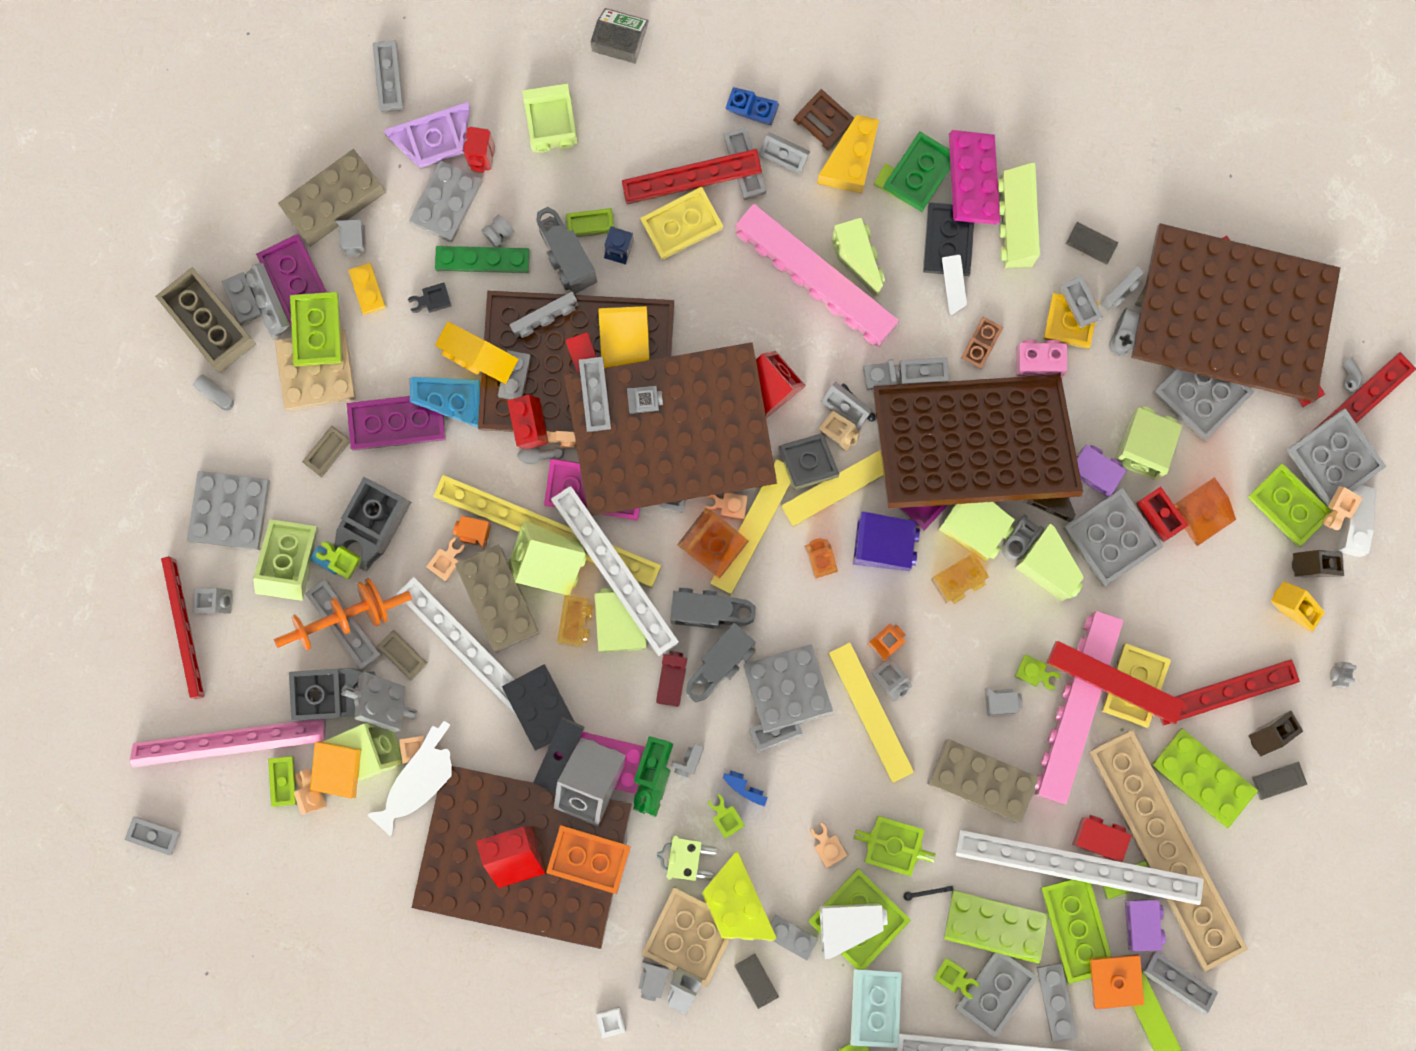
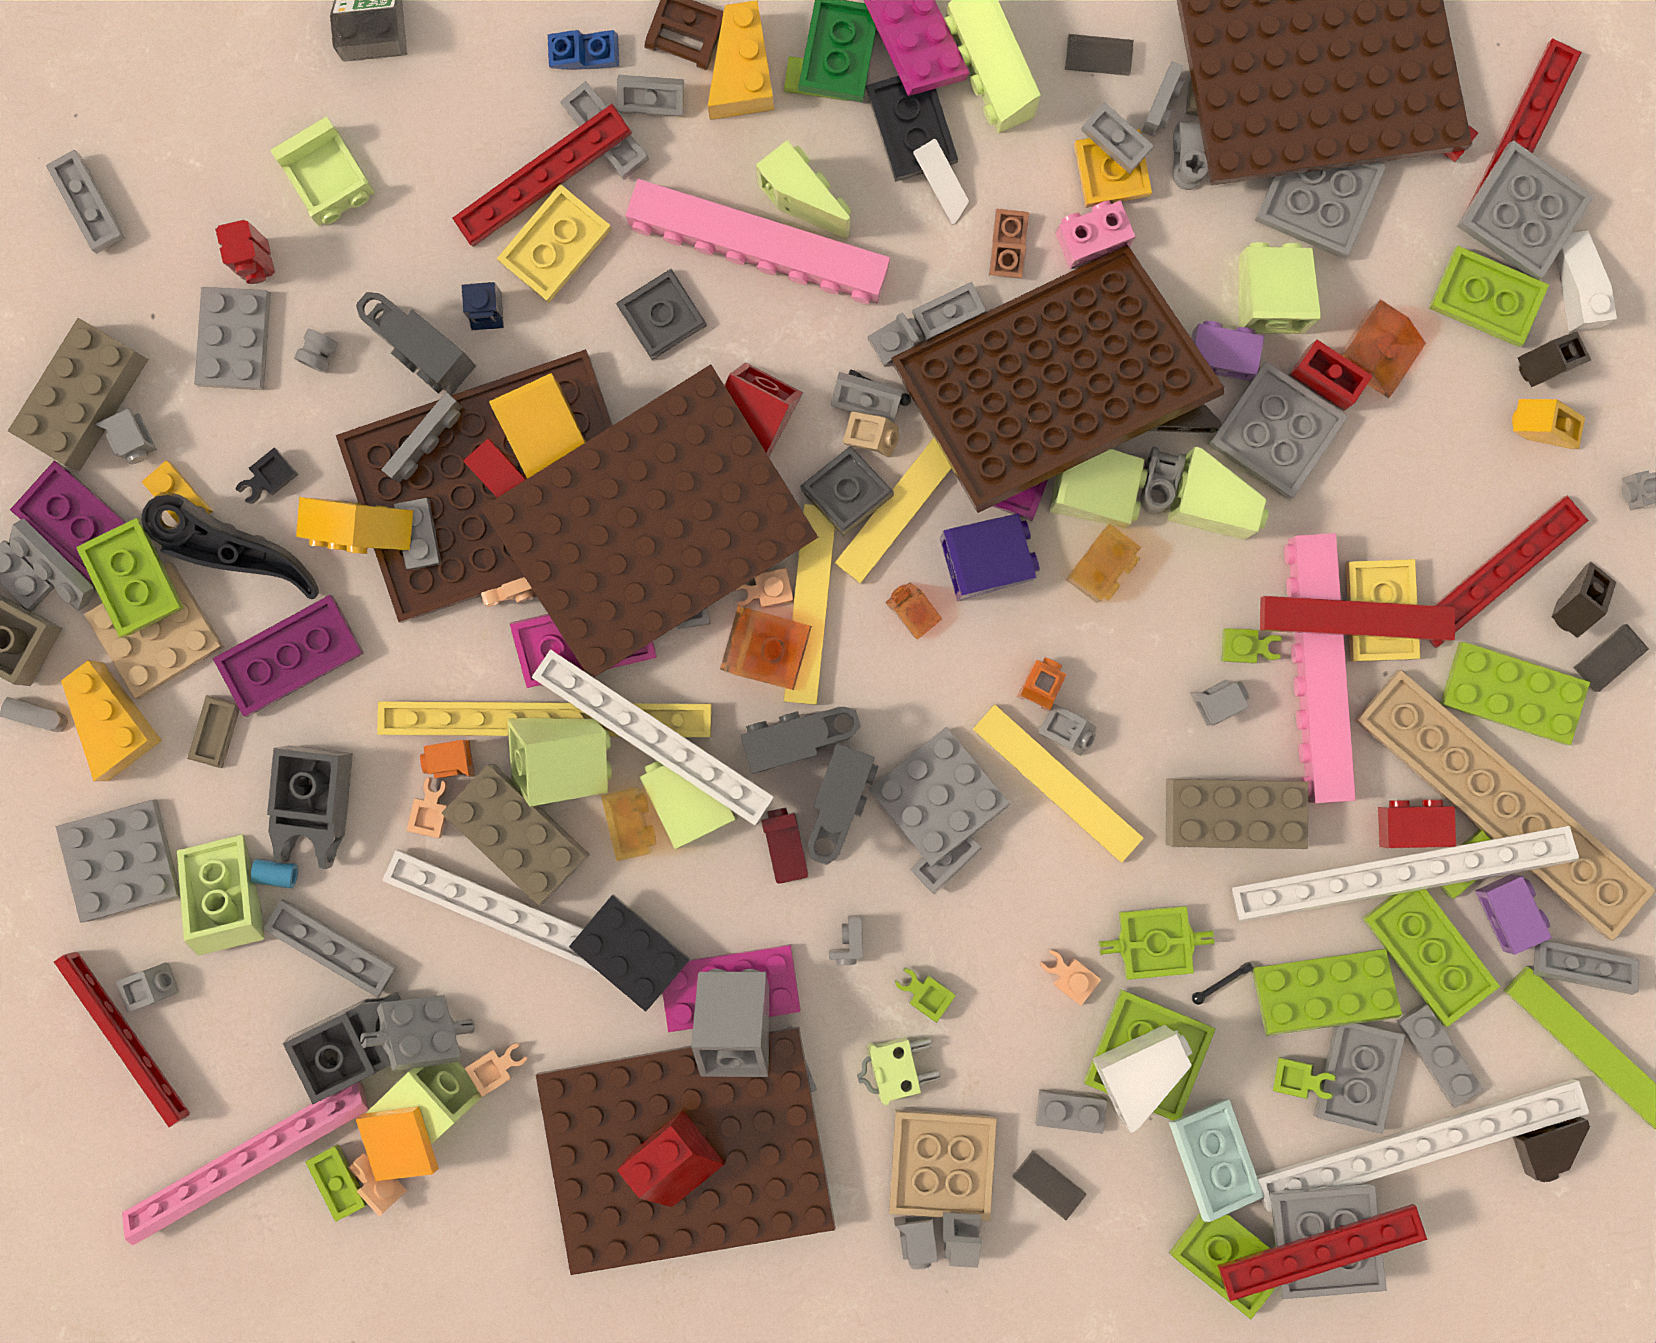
camera: 20 degrees left, 5 degrees up
(152, 836) = (198, 1321): light grey plate -> none
(260, 416) = (106, 721): none -> yellow wedge
(342, 560) = (292, 868): lime plate -> none
(370, 602) = (352, 907): orange piece -> none
(380, 329) = (219, 544): none -> black animal
(402, 655) = (423, 956): dark tan tile -> none
(417, 781) = (510, 1111): white sticker -> none
(432, 136) = (178, 258): lavender wing -> none
(448, 397) = (341, 597): dark azure wing -> none
(482, 259) = (312, 396): green plate -> none
(528, 421) = (459, 588): red brick -> none
(534, 455) = (487, 626): light grey piece -> none
(564, 741) = (678, 1020): black tile -> none
(588, 859) = (773, 1125): orange plate -> none
(590, 222) = (433, 290): lime tile -> none
(595, 394) = (531, 517): light grey plate -> none
(610, 1022) = (885, 1313): white tile -> none
(644, 399) = (599, 498): light grey window -> none
(652, 776) = (810, 981): green plate -> none
(733, 297) = (661, 314): none -> dark grey tile
(736, 904) = (985, 1100): neon yellow wing -> none
(738, 784) = (925, 946): blue slope -> none
(1116, 981) = (1507, 1000): orange plate -> none
(1343, 505) = (1560, 268): light nougat plate -> none
(1353, 377) = (1505, 94): light grey arm -> none

